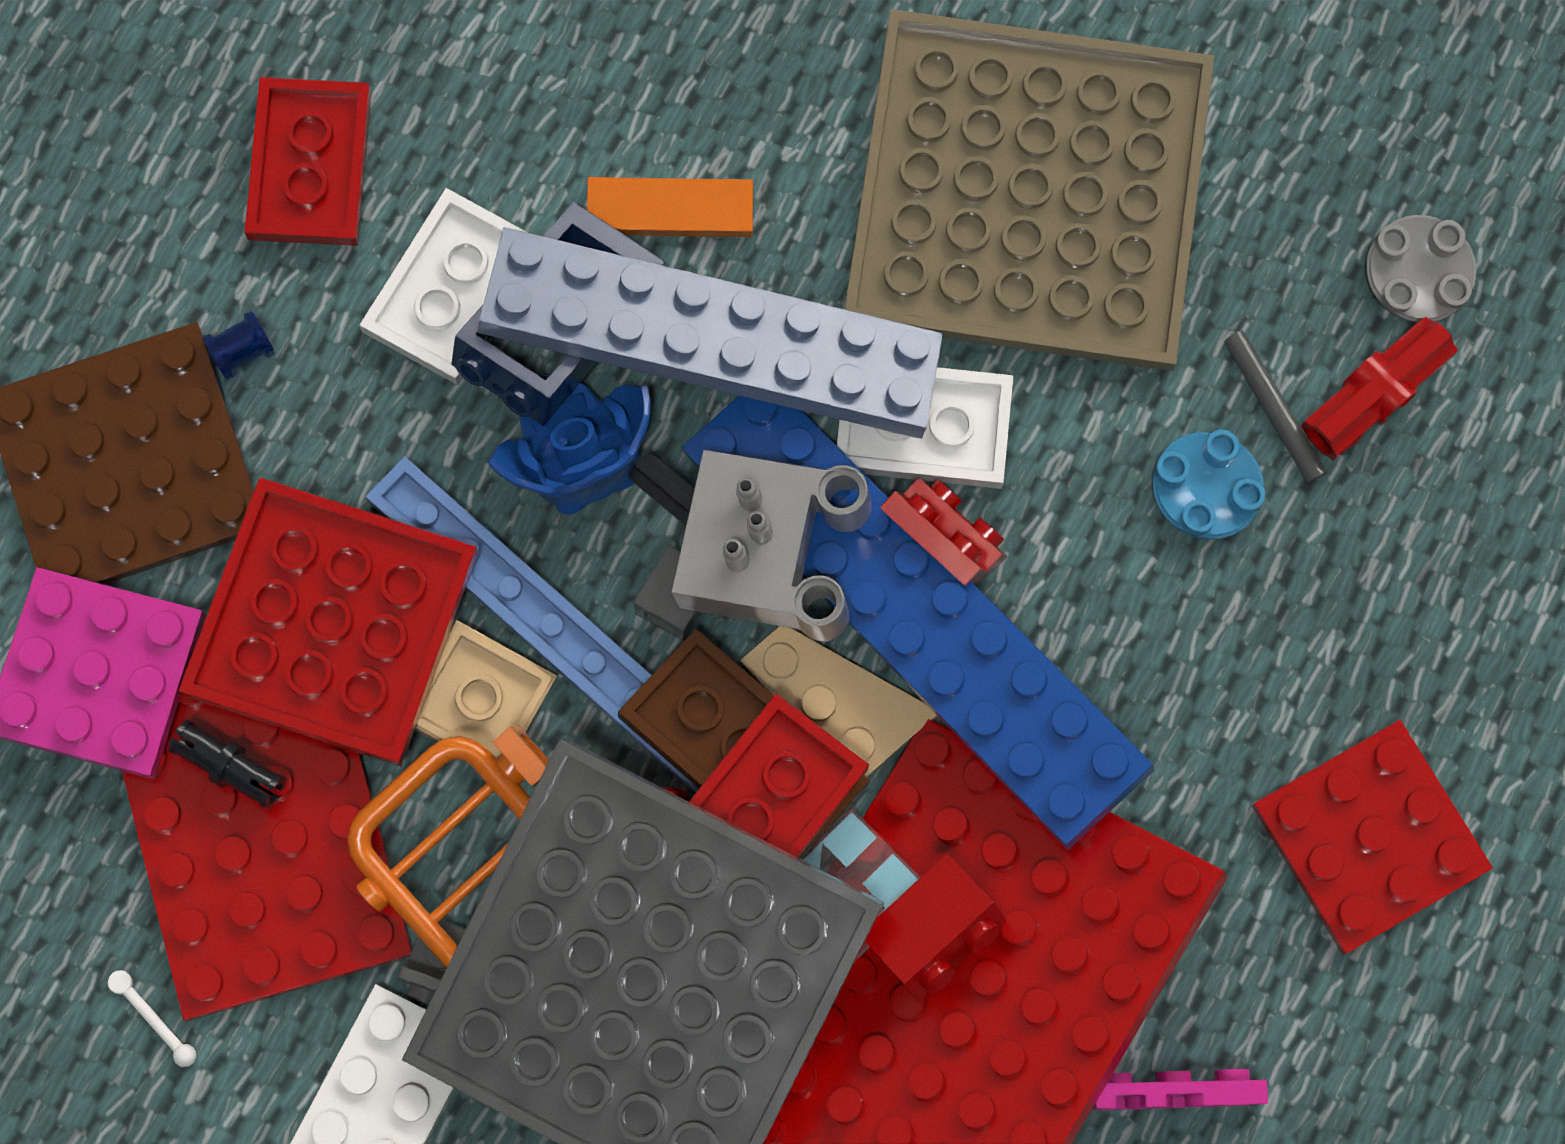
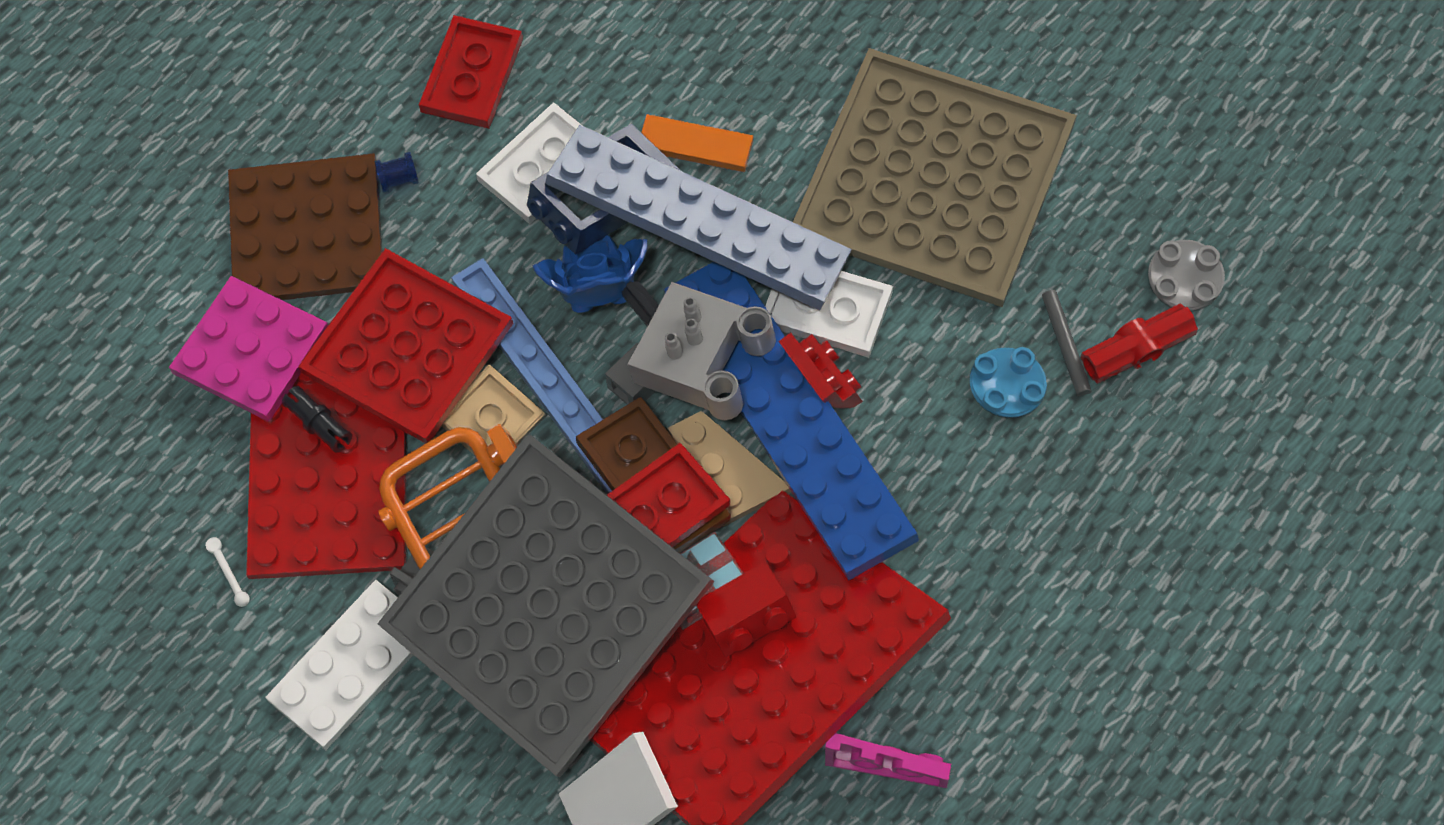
camera: 20 degrees right, 10 degrees down
(1371, 837) = (1066, 629): red plate -> none

